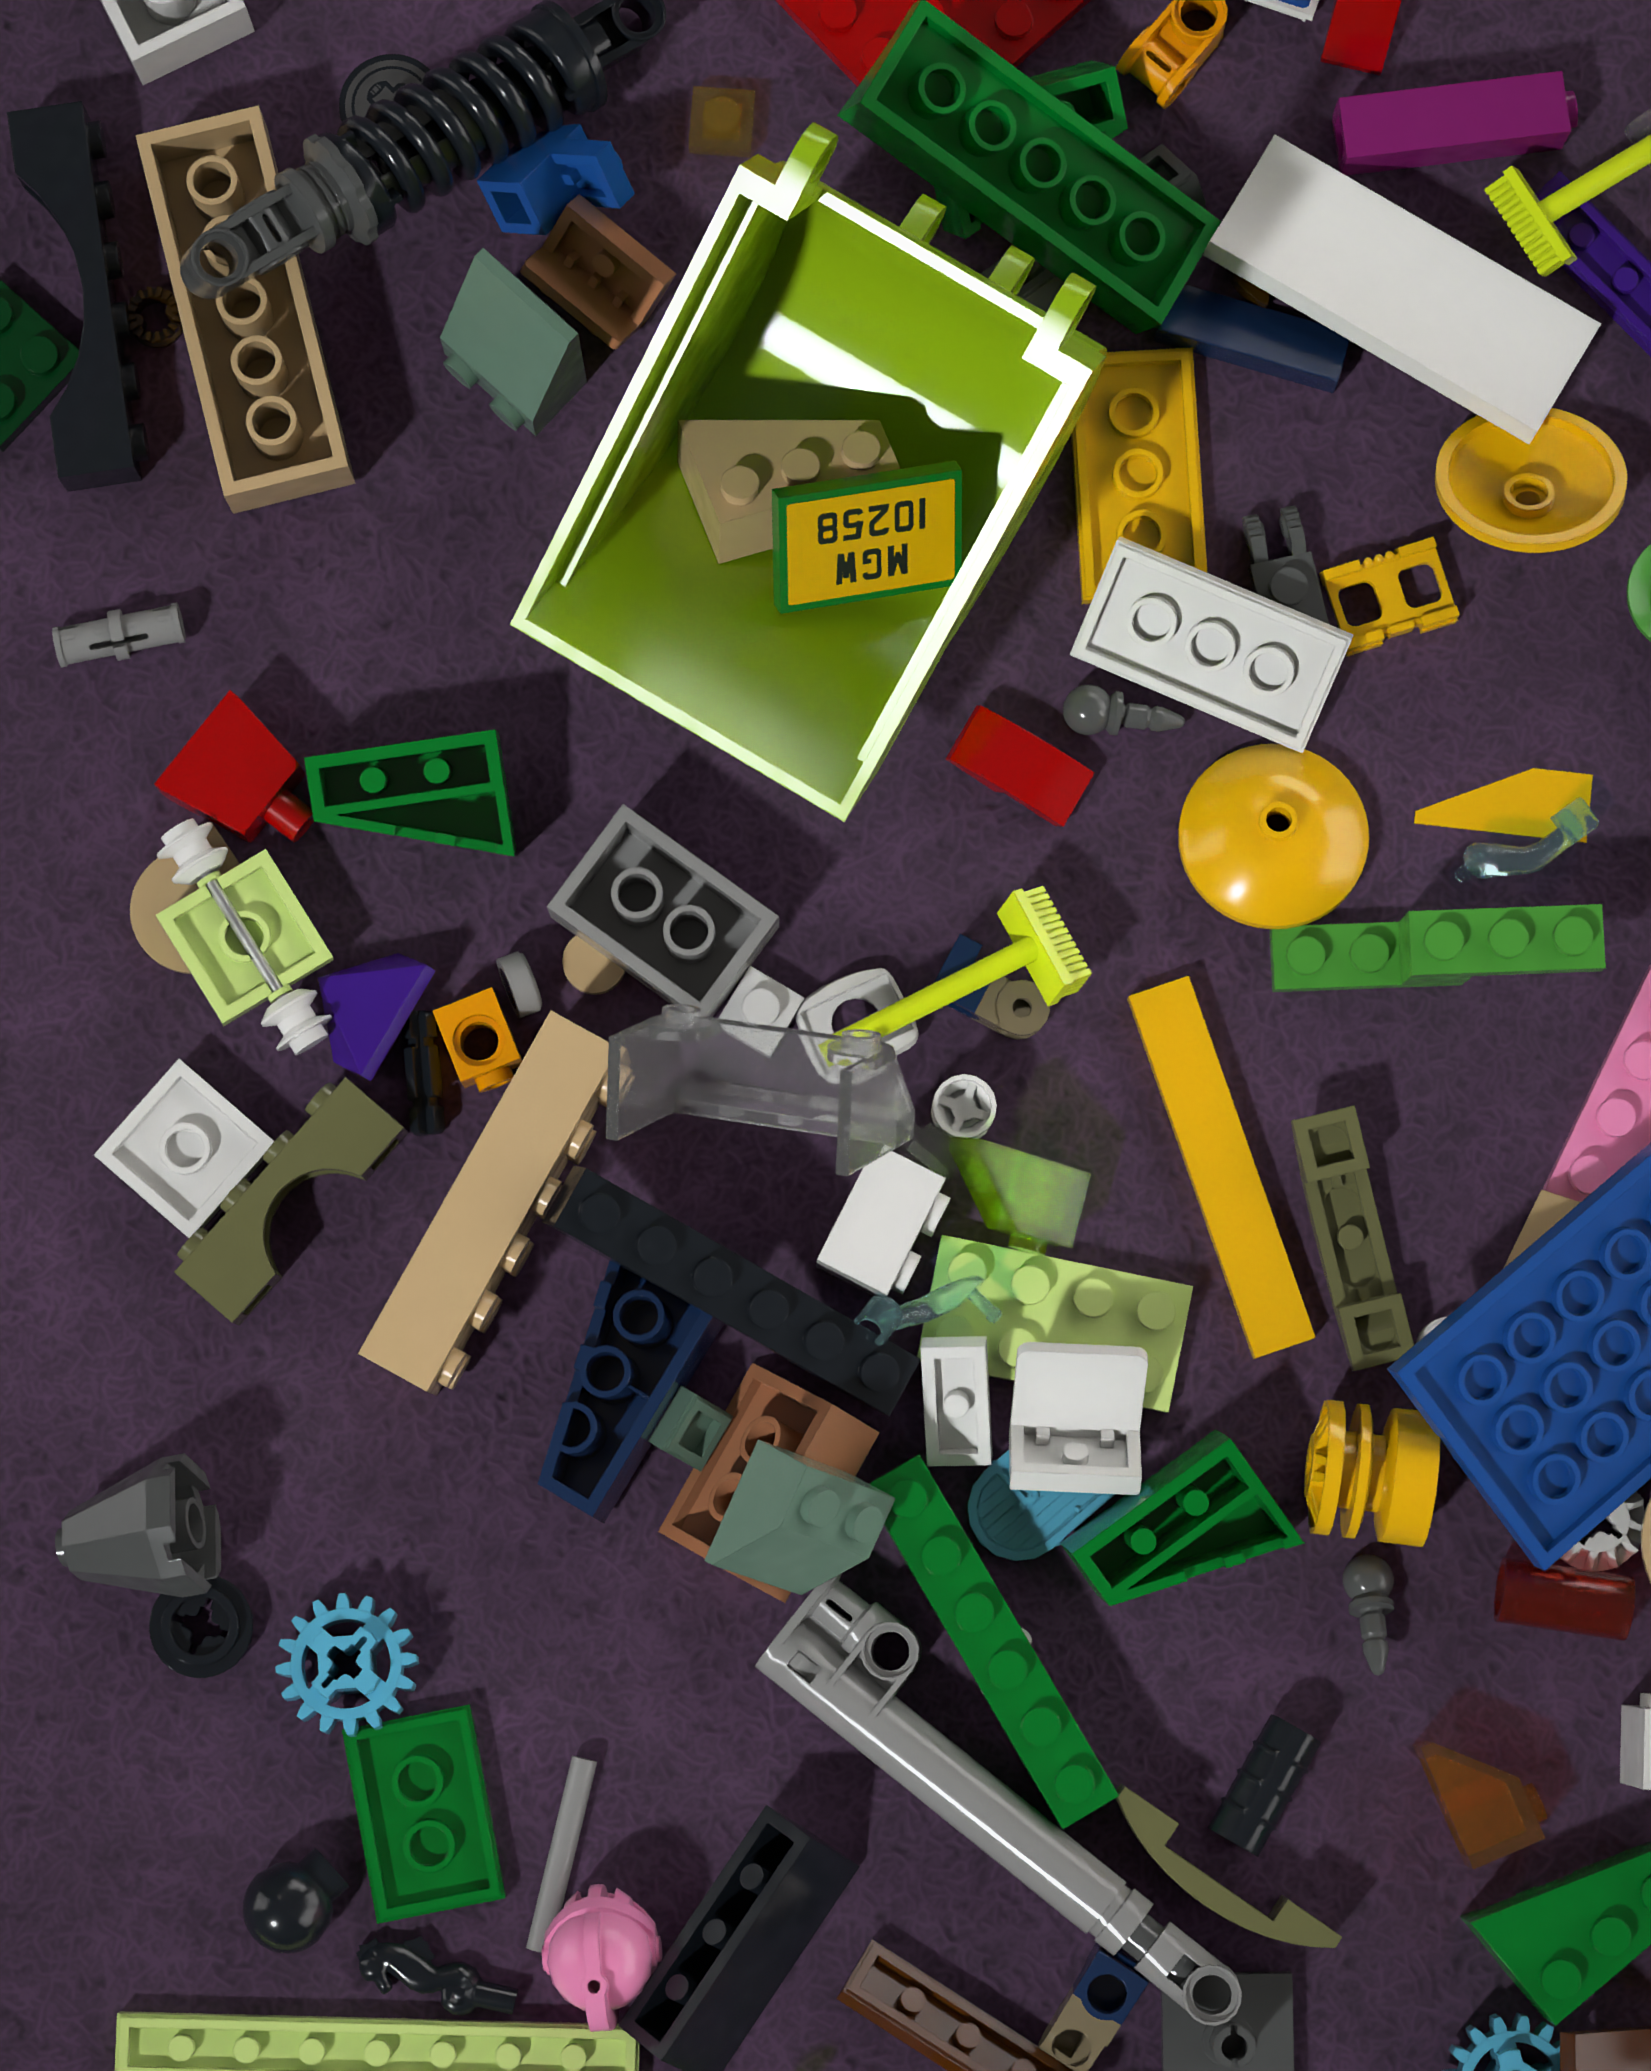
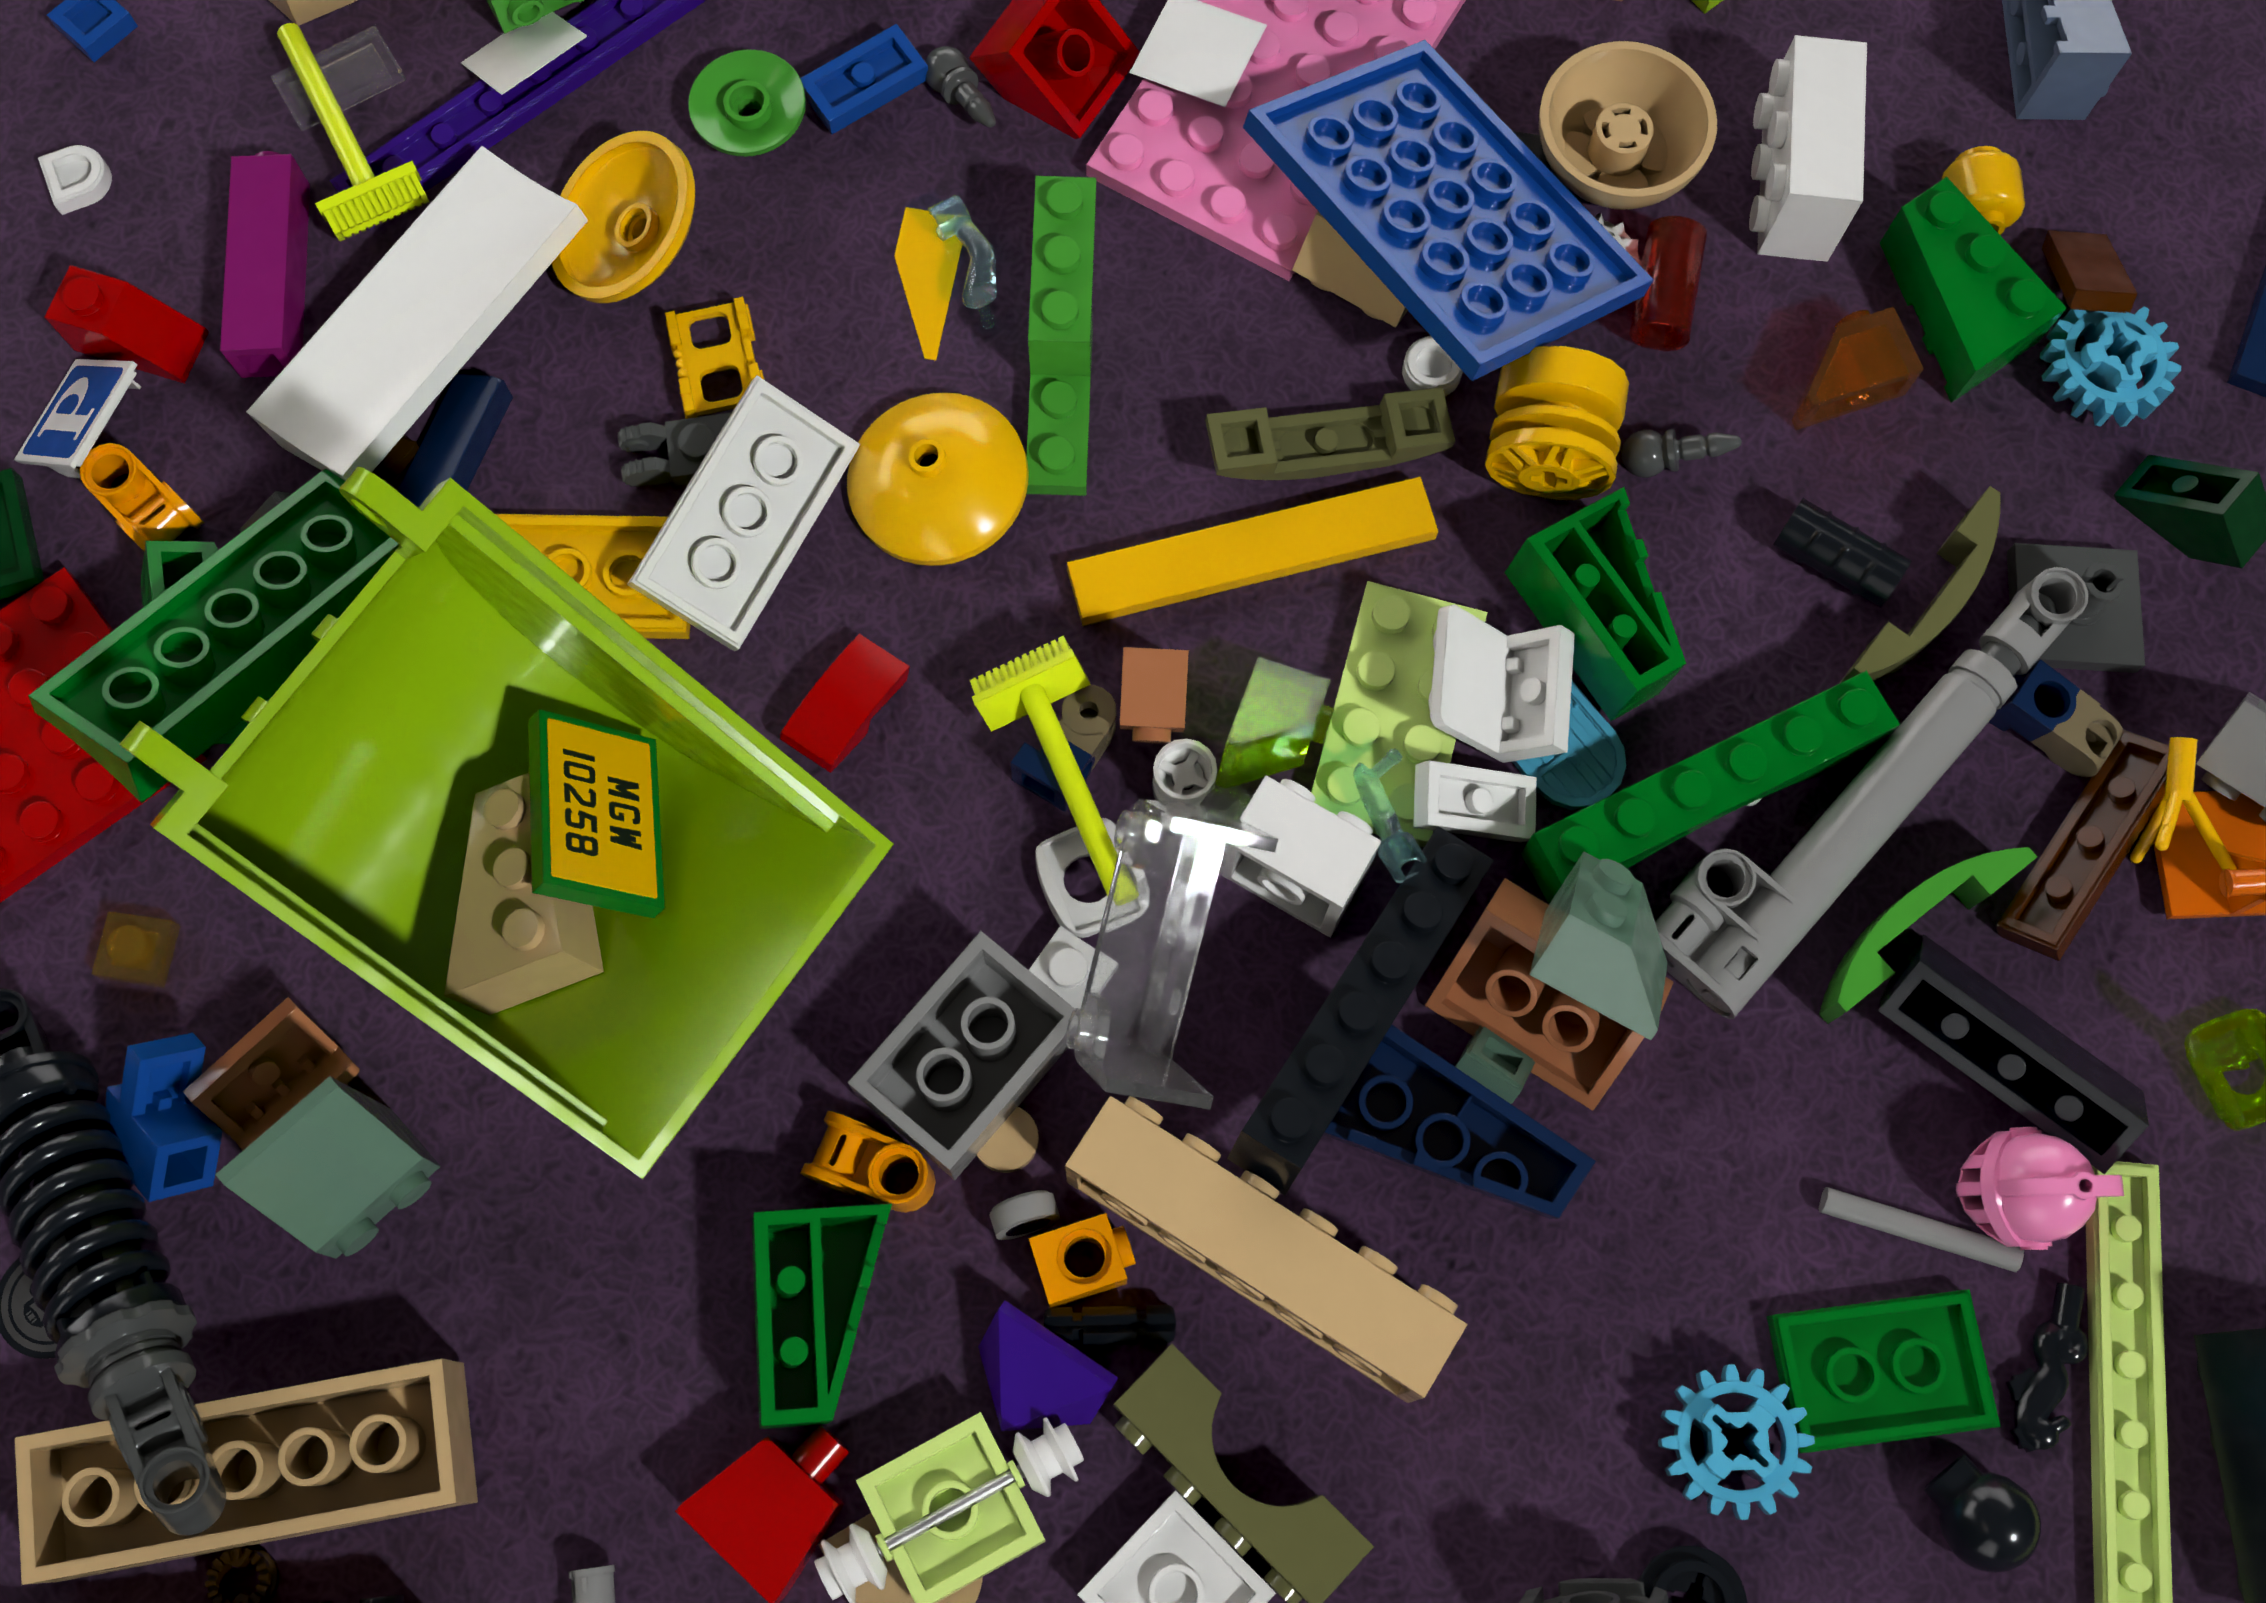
camera: 85 degrees left, 10 degrees down
(561, 824) = (857, 1162): none -> light orange piece
(915, 1917) = (1865, 969): none -> bright green slope
(1041, 1069) = (1153, 693): none -> nougat slope
(1092, 710) = (797, 629): dark grey bar -> none

